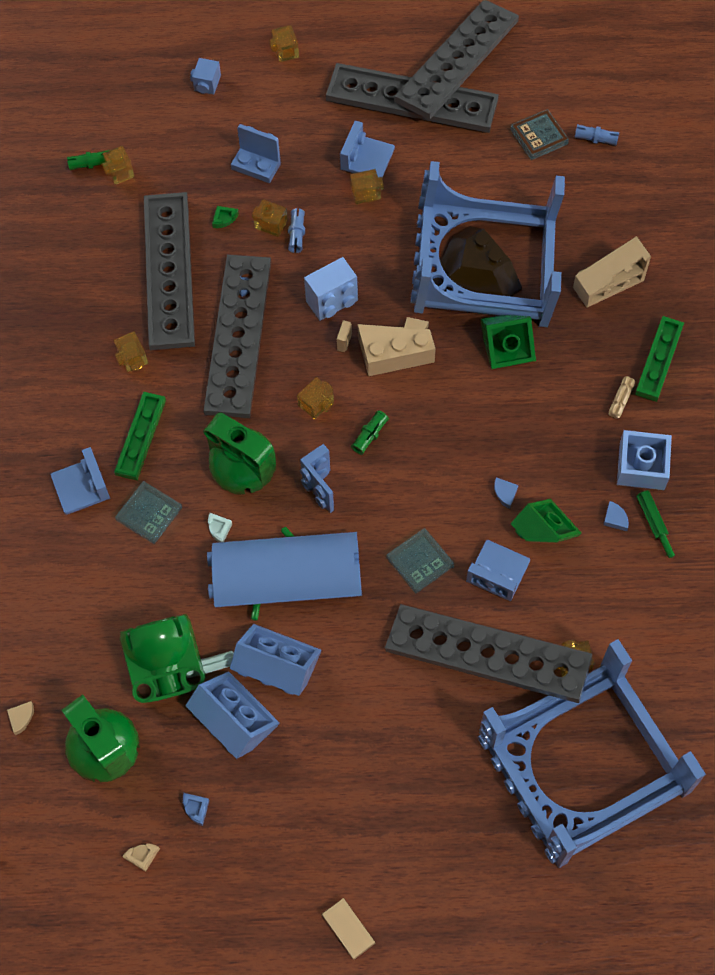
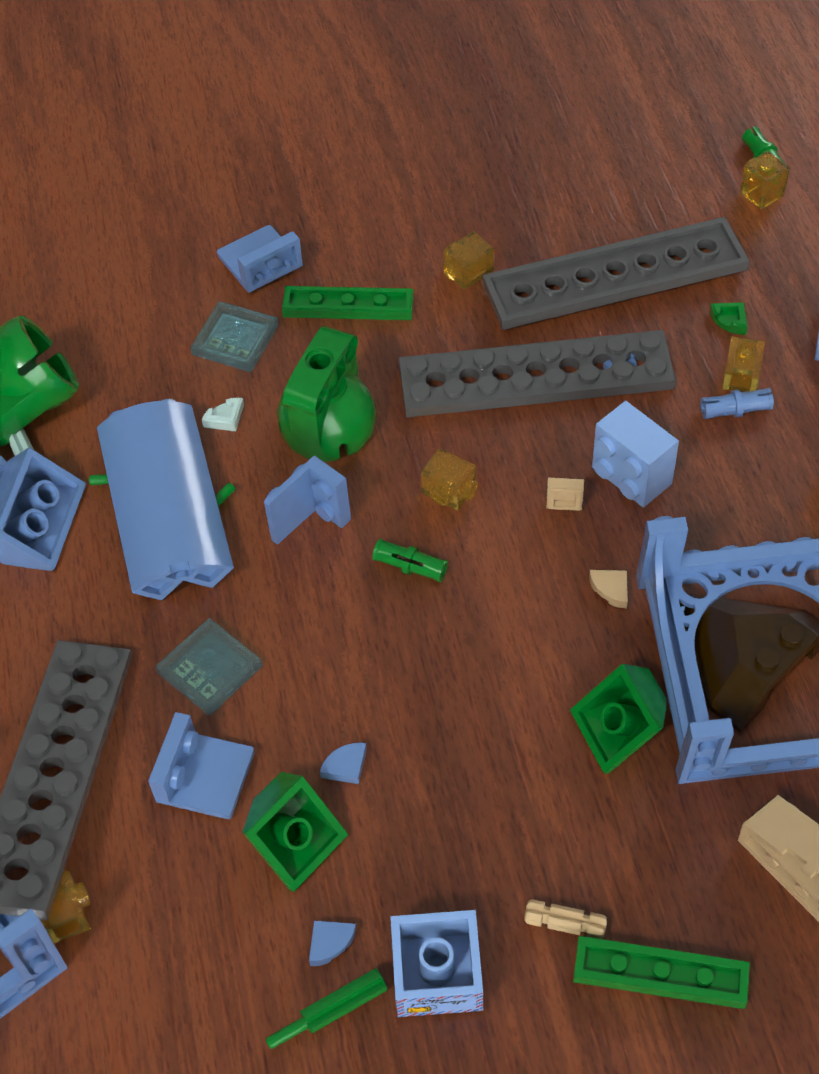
camera: 80 degrees right, 10 degrees down
(394, 348) = (559, 560): tan wedge -> none

